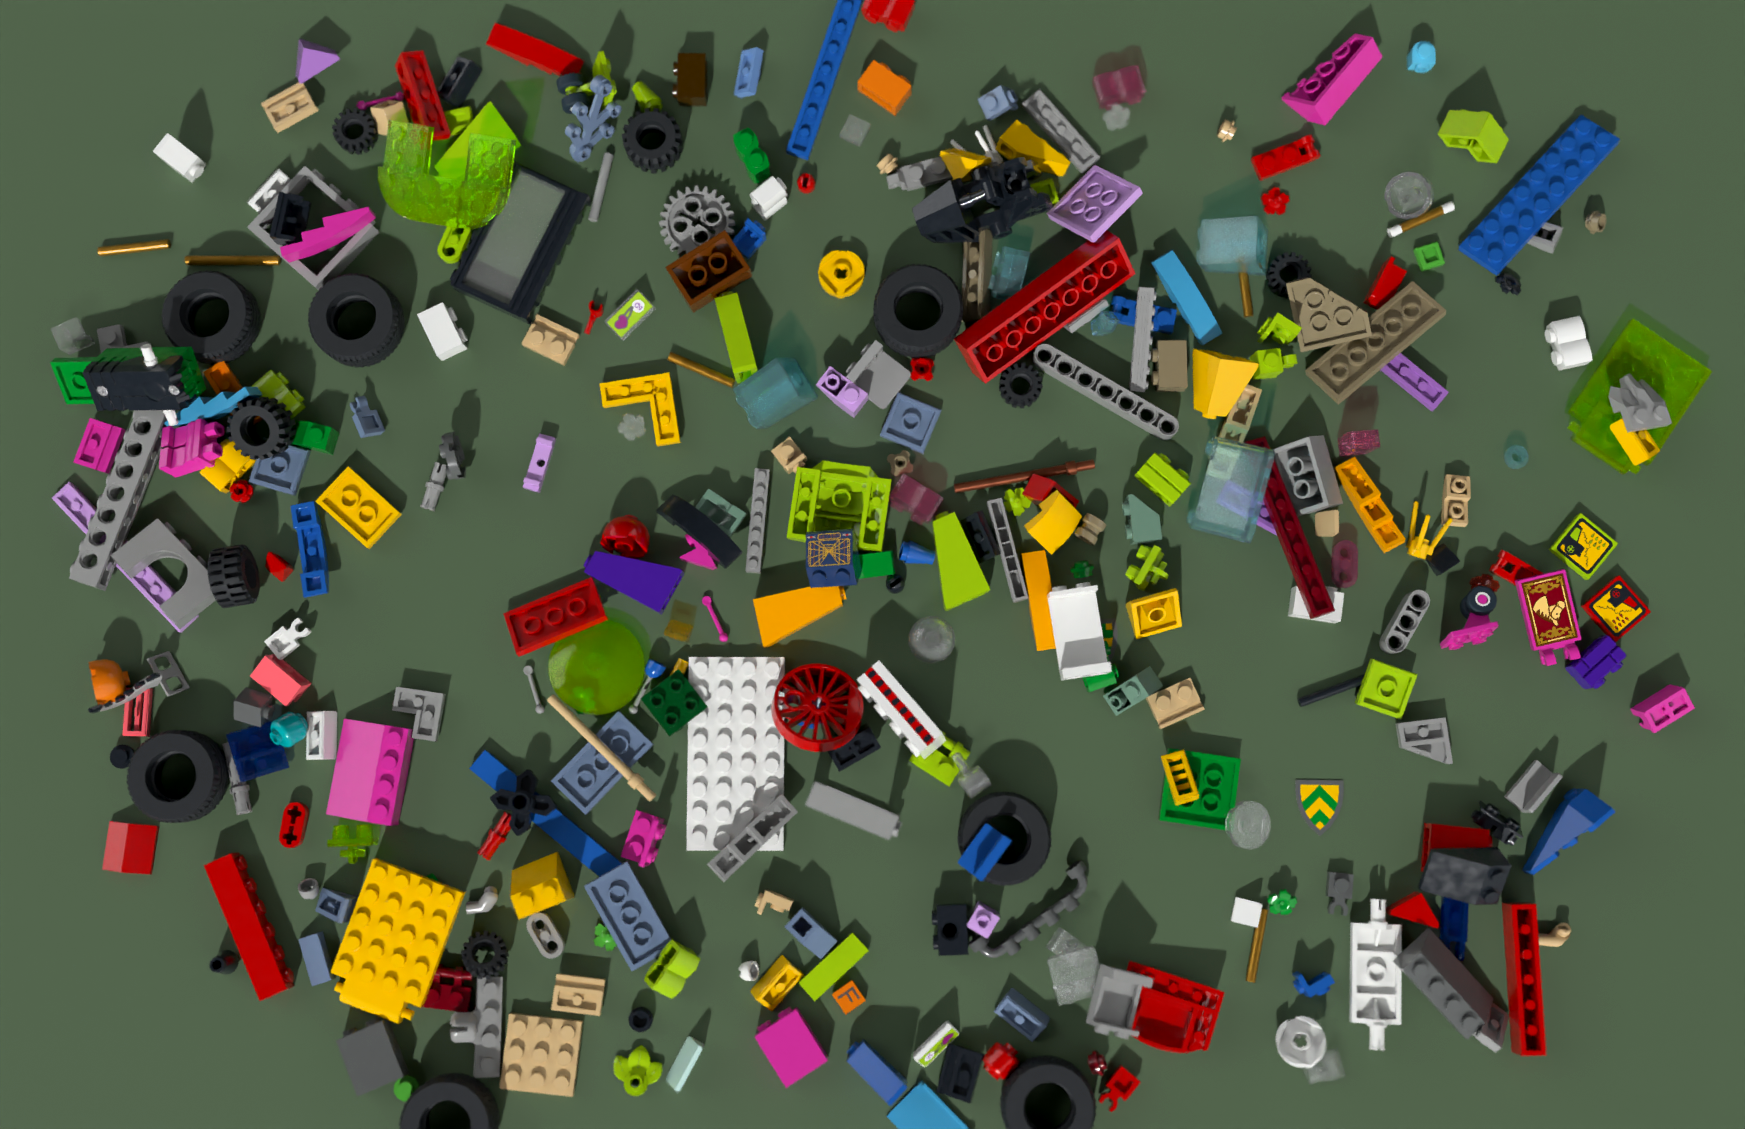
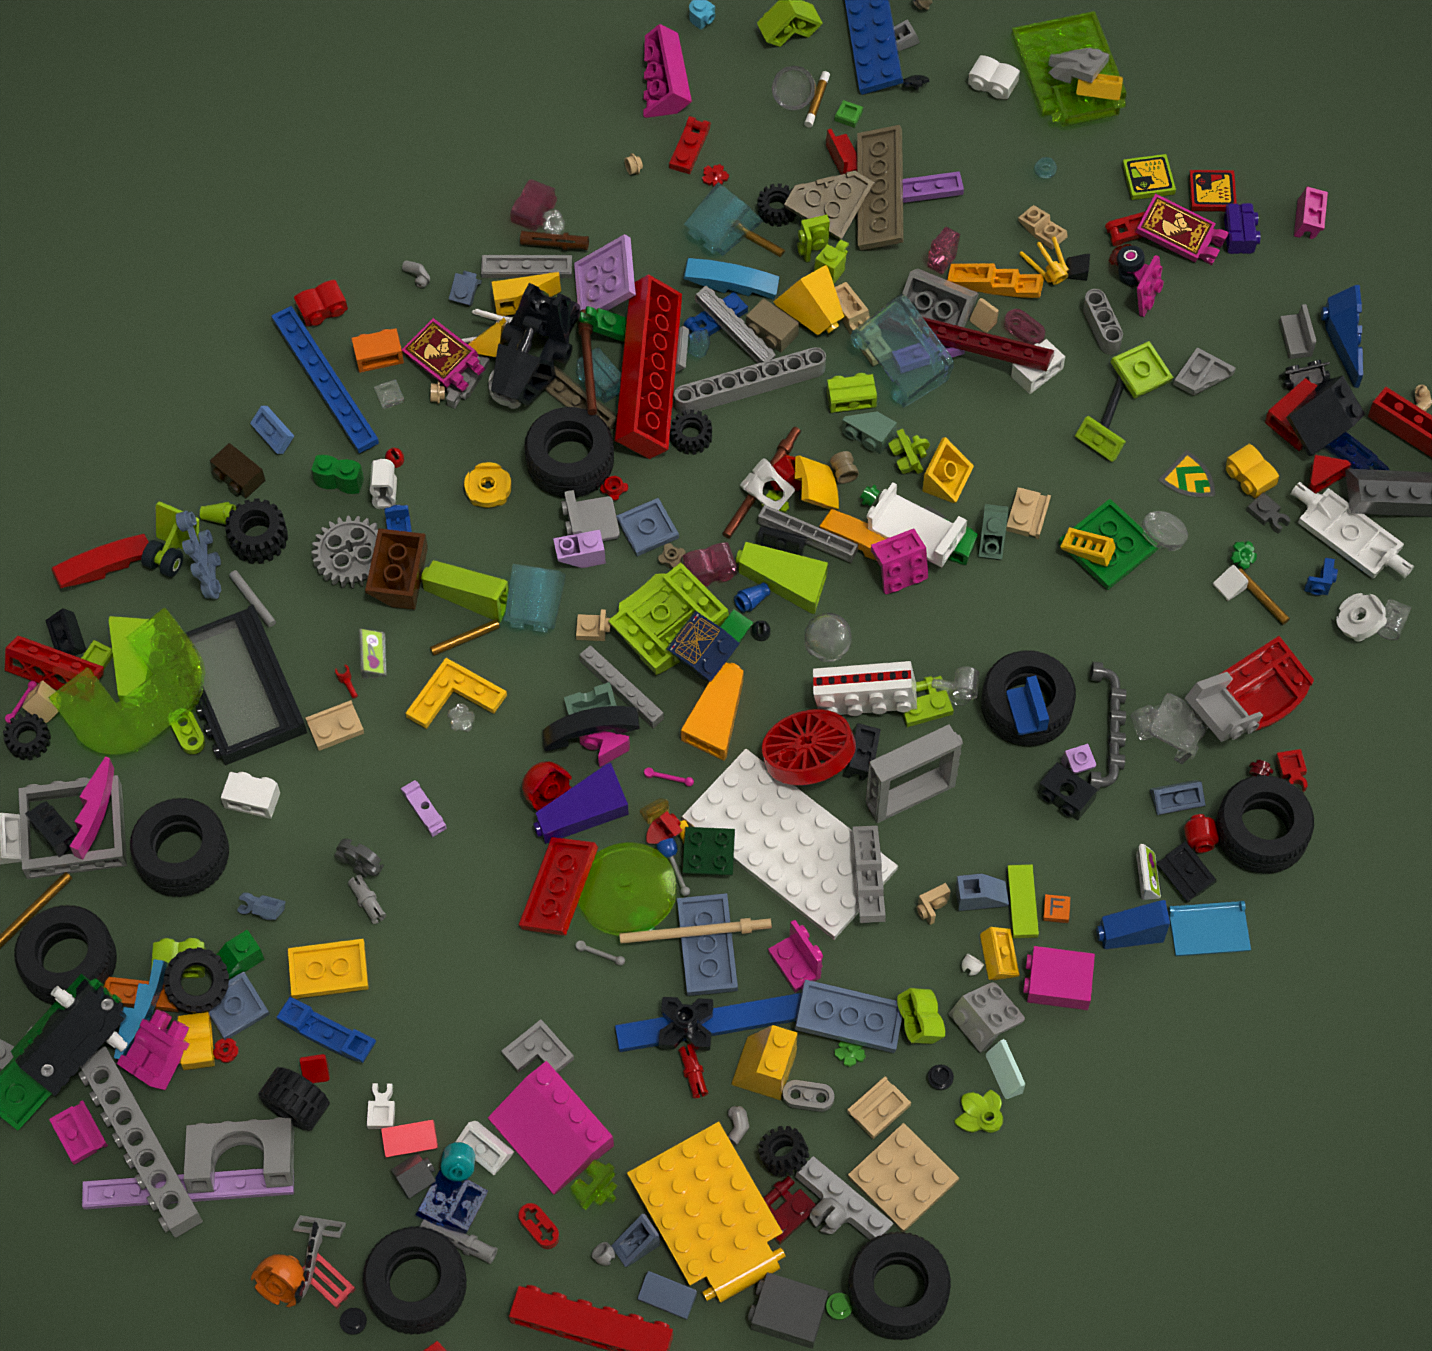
camera: 50 degrees left, 20 degrees down
(666, 652) = (663, 827): none -> red plate
(717, 1015) = (985, 1015): none -> light grey bracket
(921, 140) = (443, 355): none -> tile
(983, 52) = (418, 269): none -> light grey arm
(1026, 475) = (761, 474): none -> white piece
(1035, 229) = (585, 331): none -> copper bar
(1039, 643) = (901, 560): none -> dark pink bracket
(1055, 237) = (605, 322): none -> green plate
(1107, 139) = (581, 242): none -> reddish brown pin
(1290, 707) = (1100, 438): none -> lime plate
(1364, 850) = (1252, 471): none -> yellow brick

